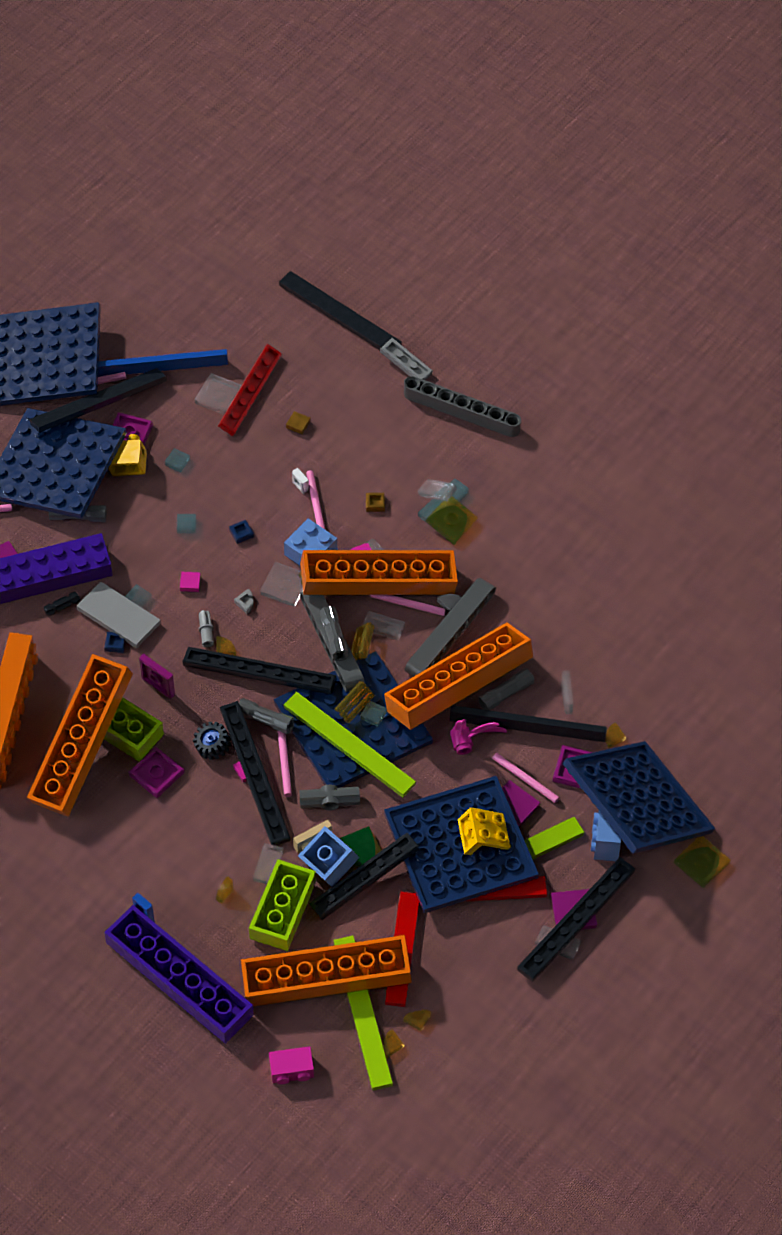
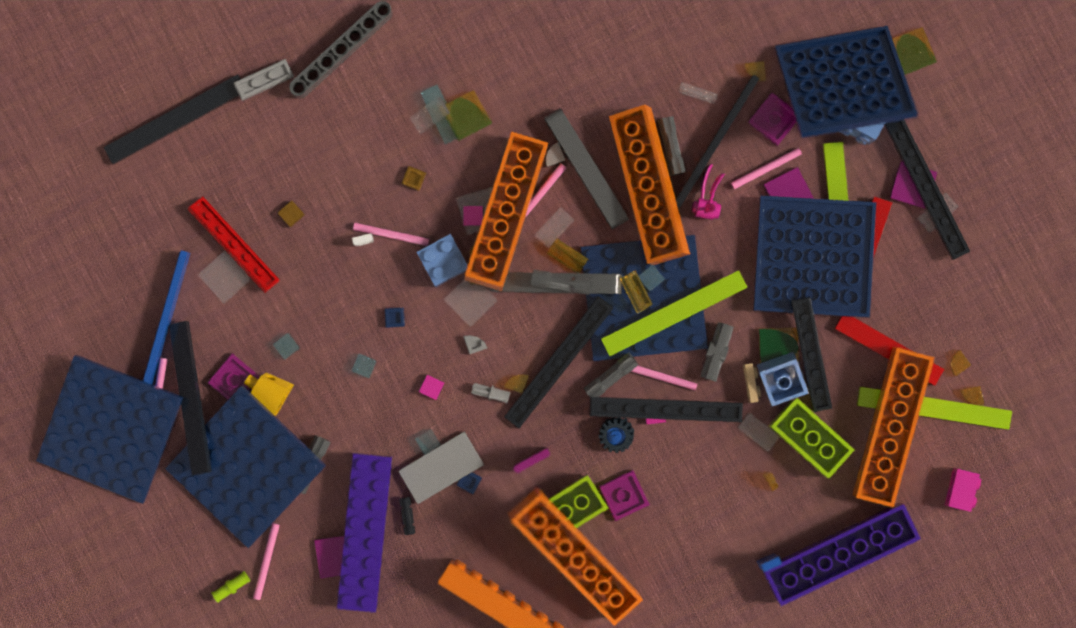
camera: 70 degrees left, 30 degrees up
(482, 828) = (818, 233): yellow bracket -> none

